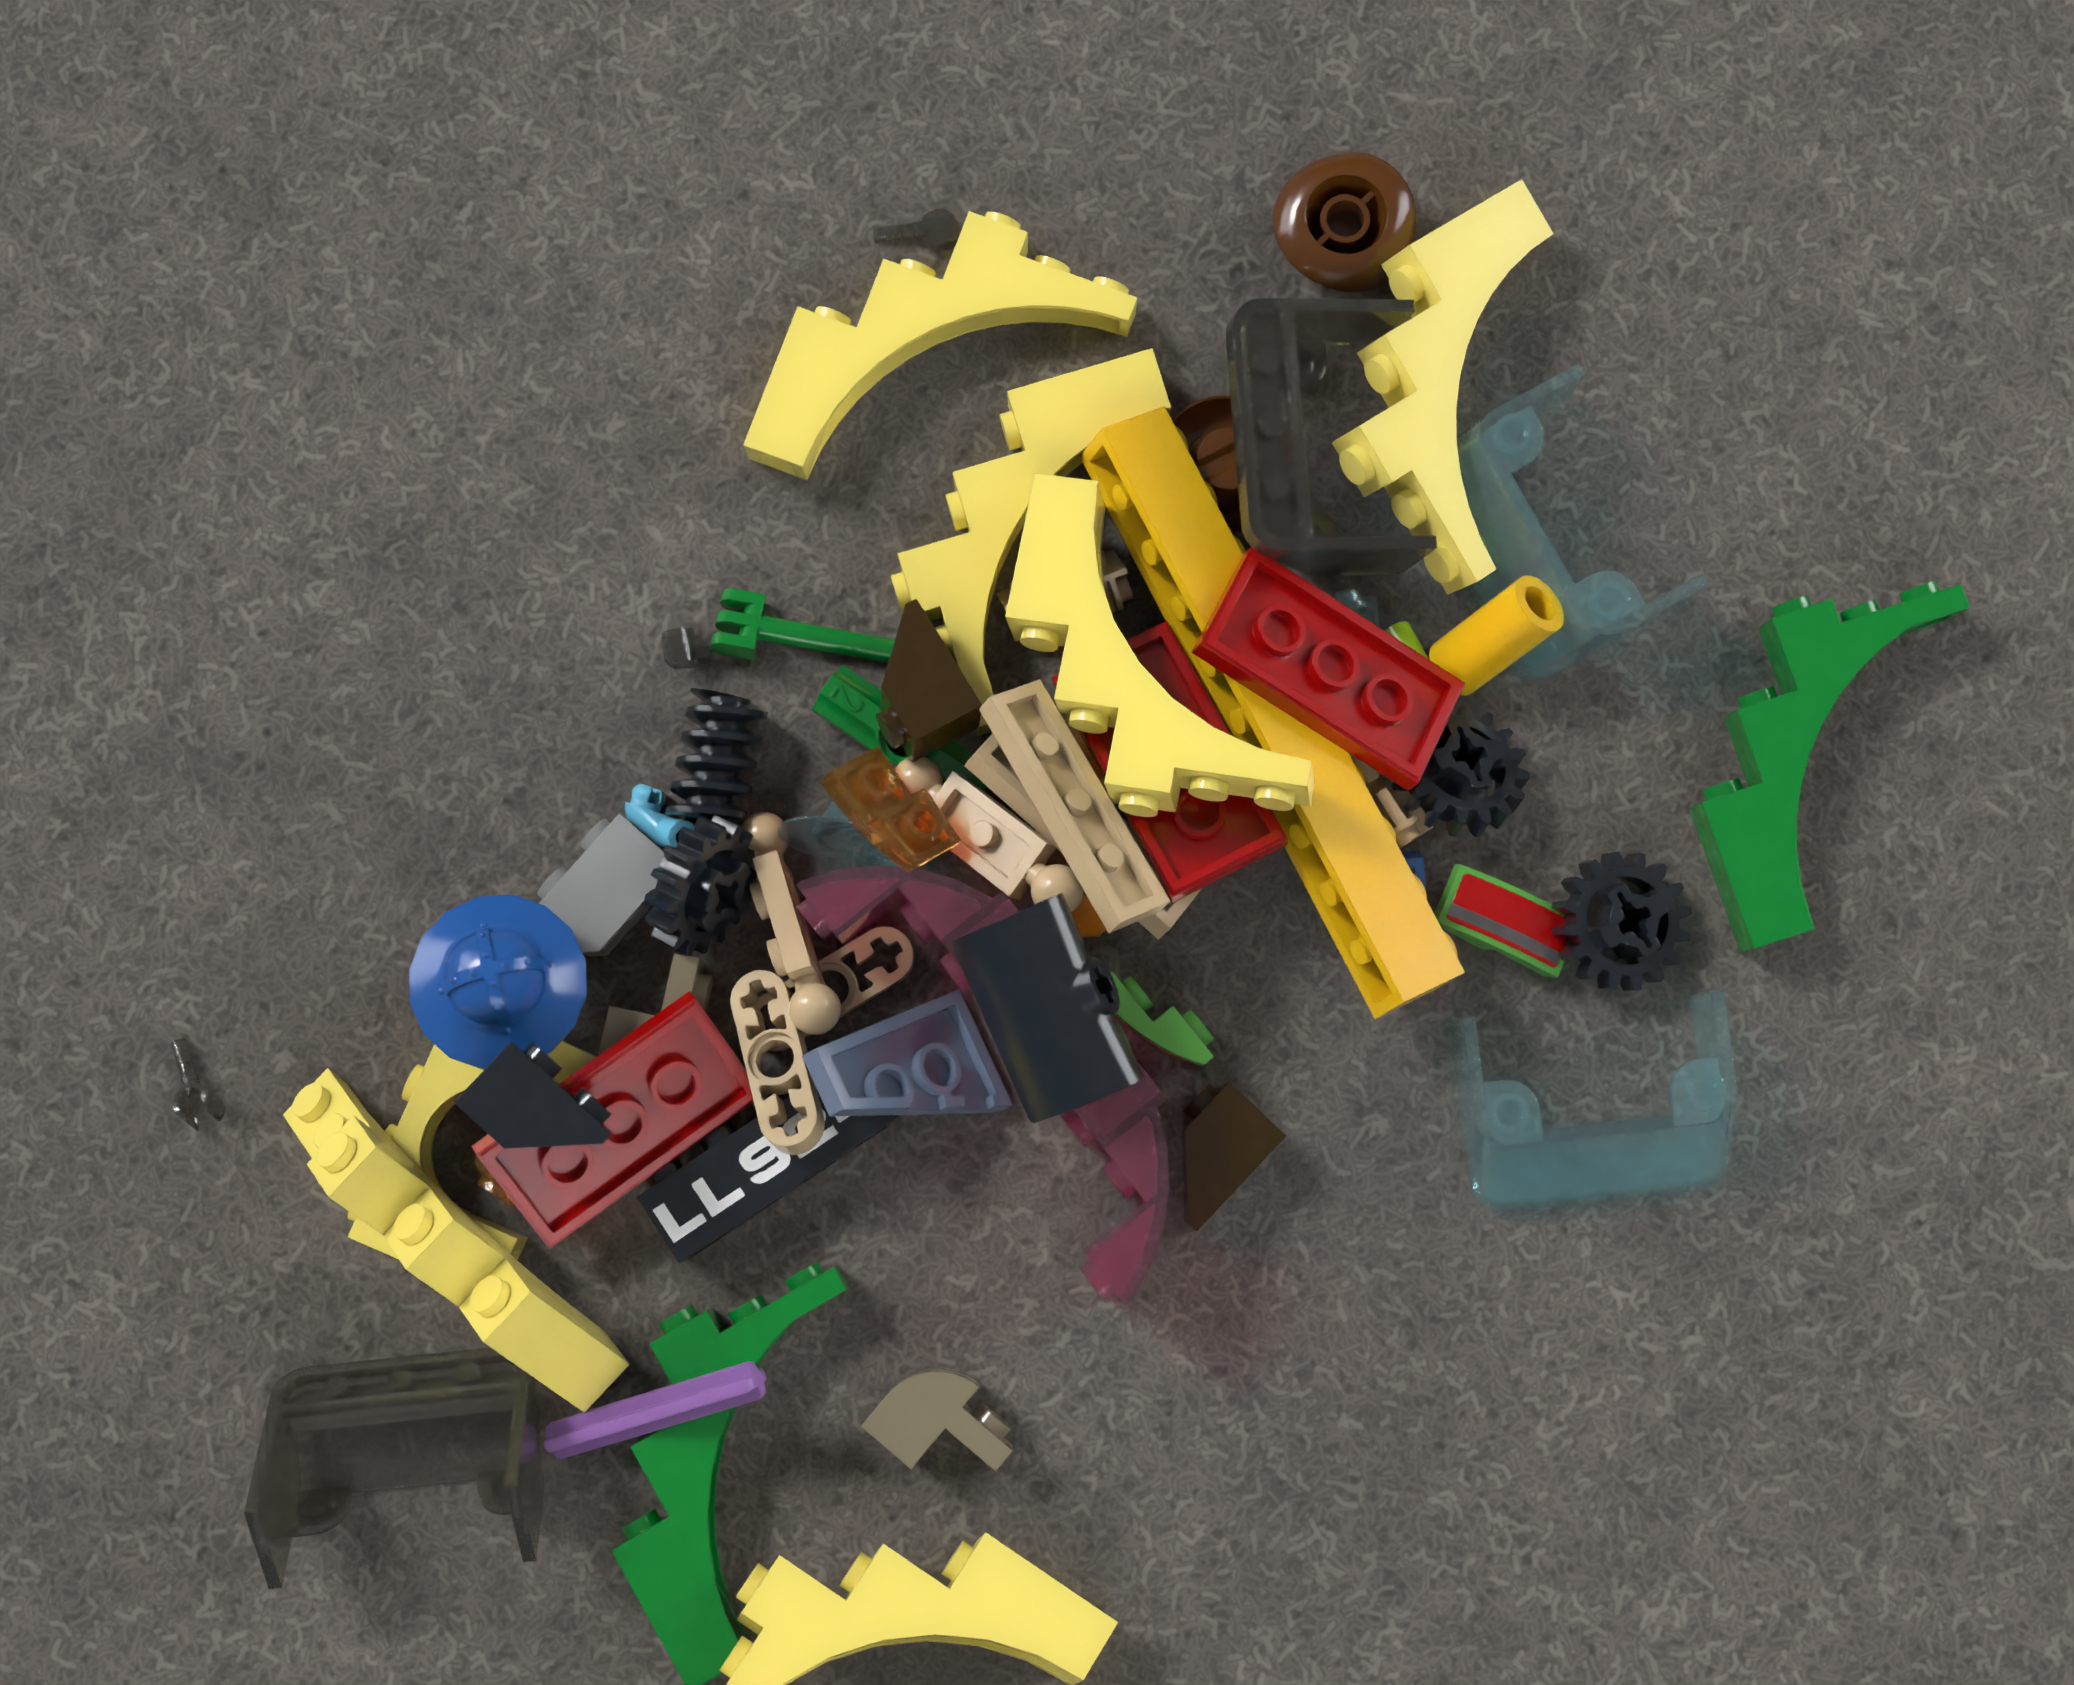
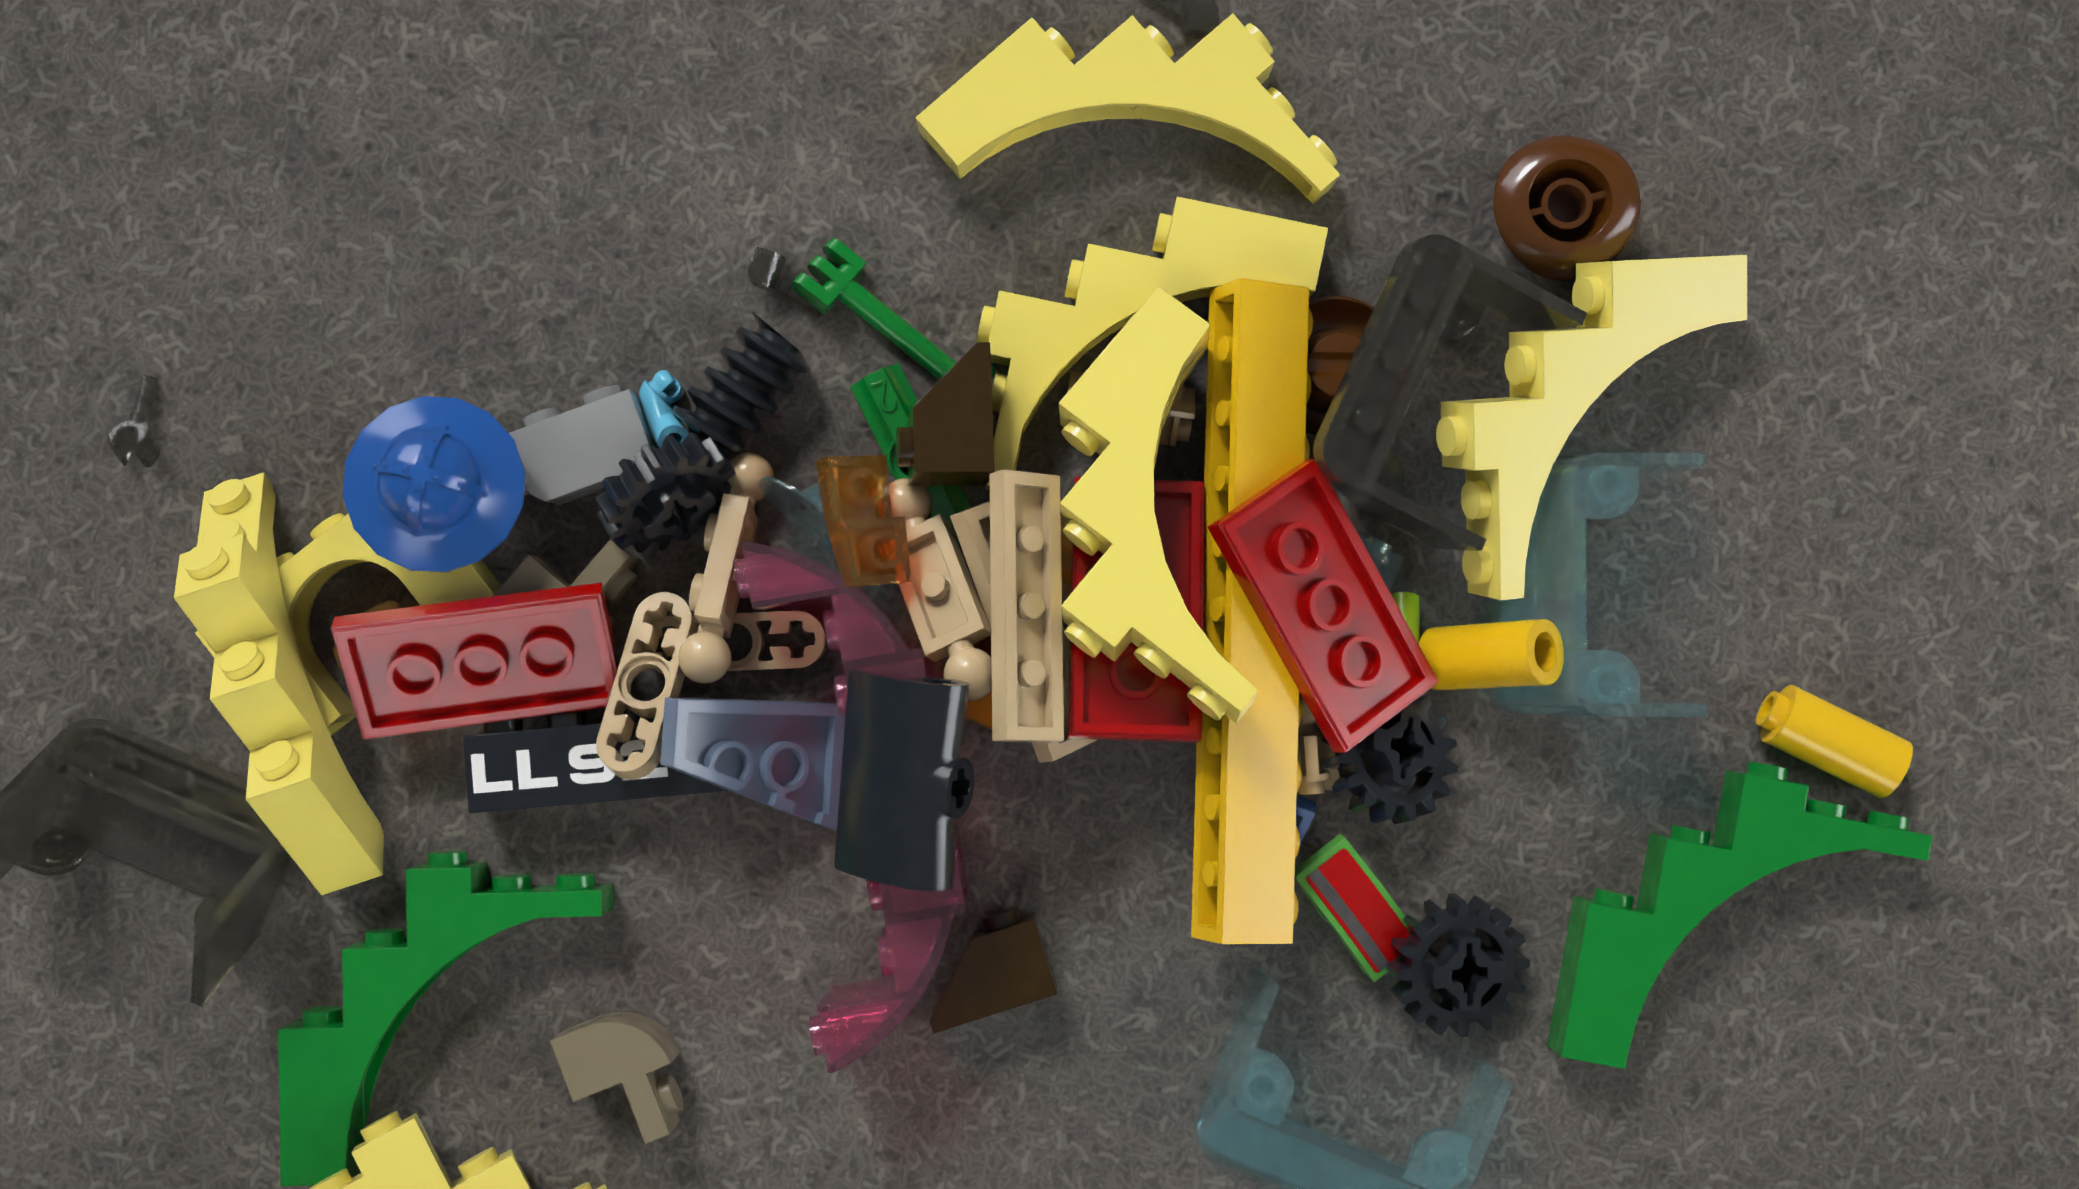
camera: 30 degrees right, 5 degrees up
(527, 1107) = (394, 614): black slope -> none
(655, 1410) = (380, 931): medium lavender axle -> none
(1171, 1033) = (1007, 844): bright green slope -> none
(1834, 550) = (1834, 740): none -> yellow brick

